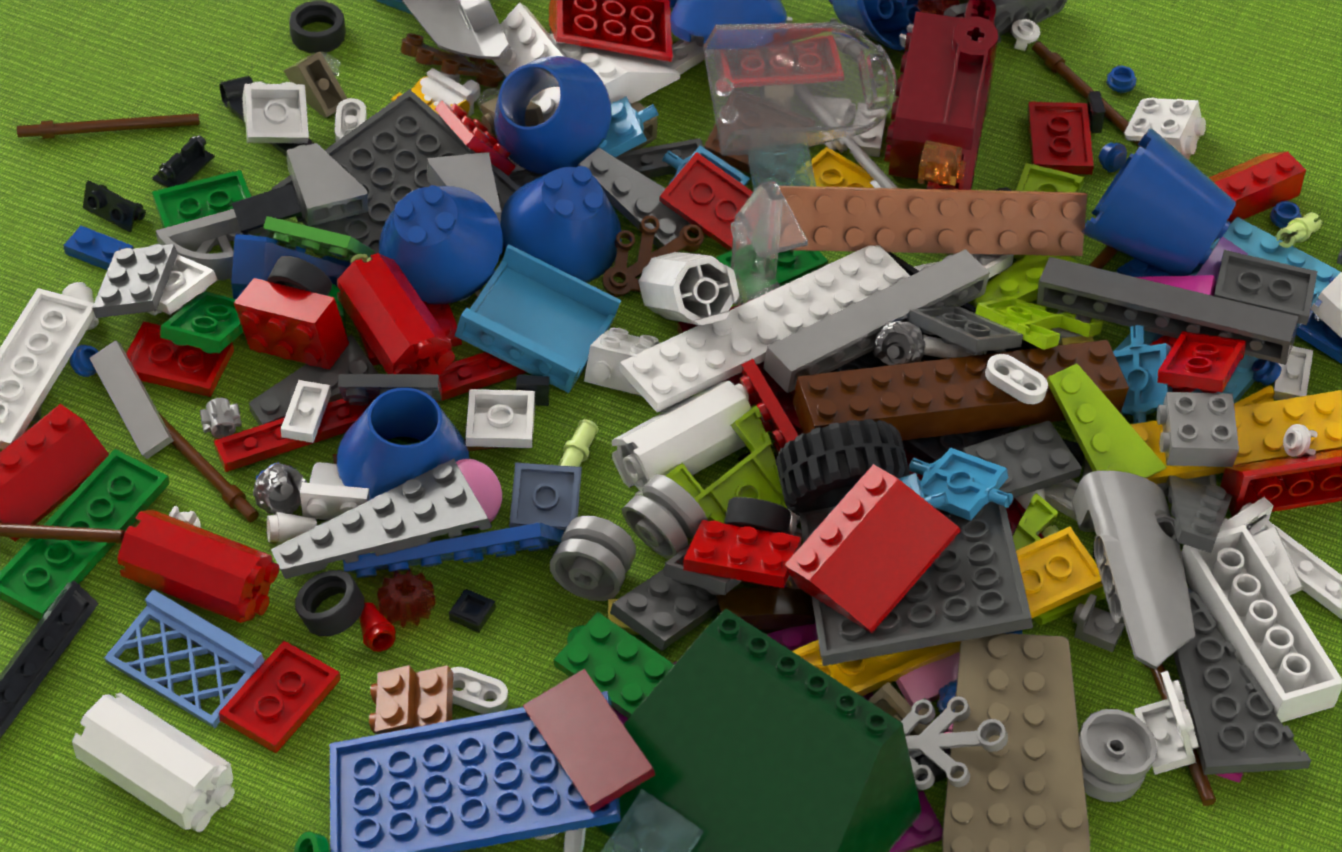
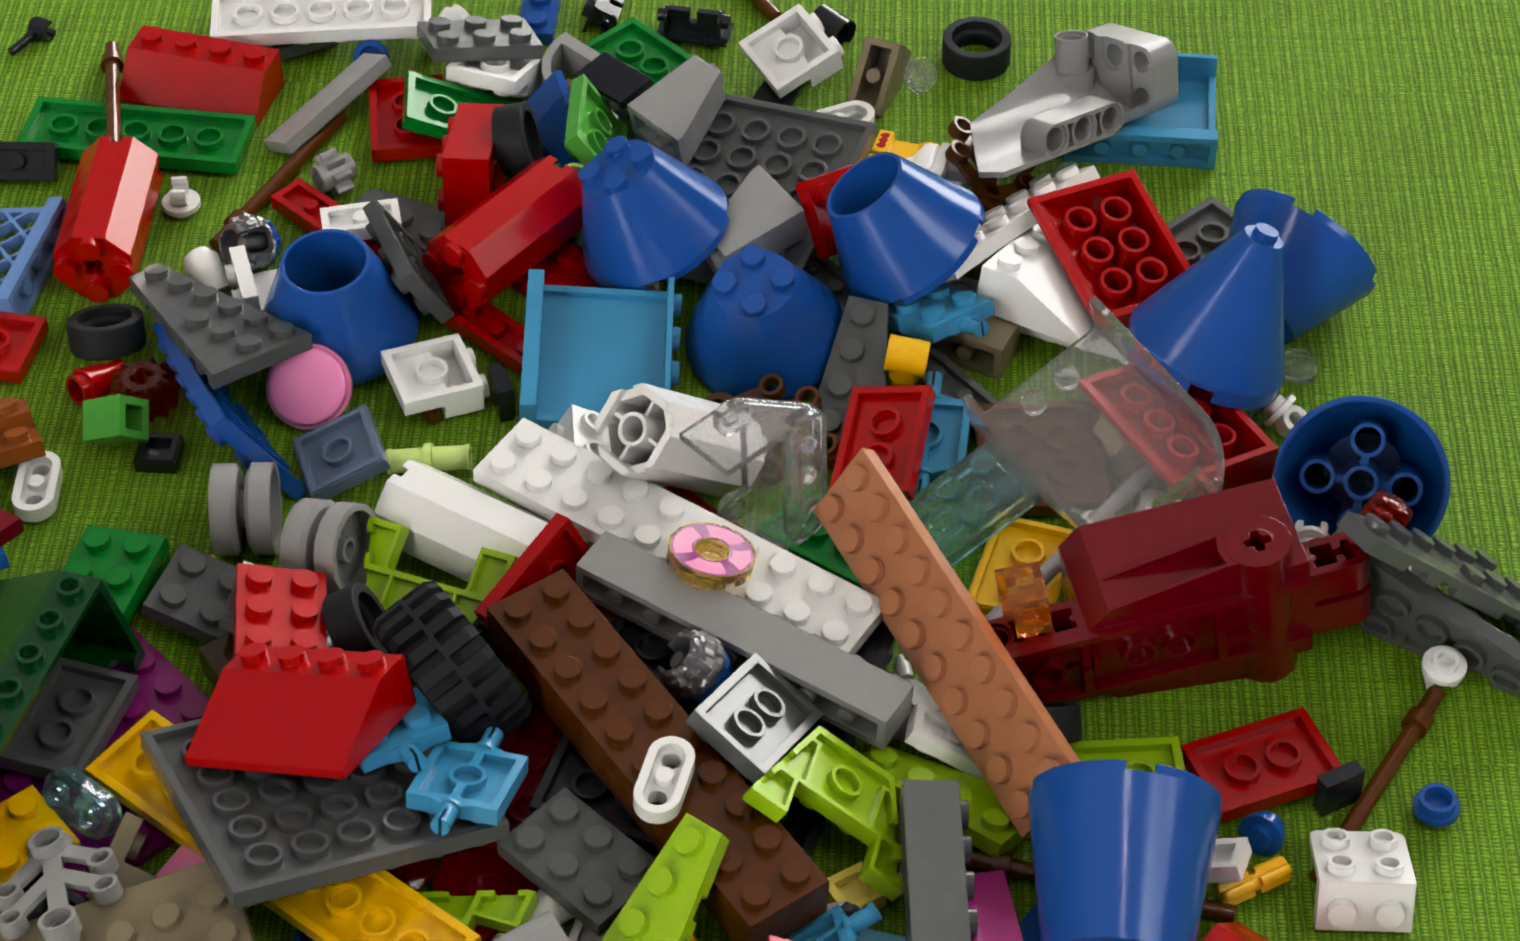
camera: 70 degrees right, 5 degrees down
(443, 618) = (115, 420): none -> bright green brick
(651, 158) = (906, 359): none -> yellow pin
(816, 301) = (710, 555): none -> tile

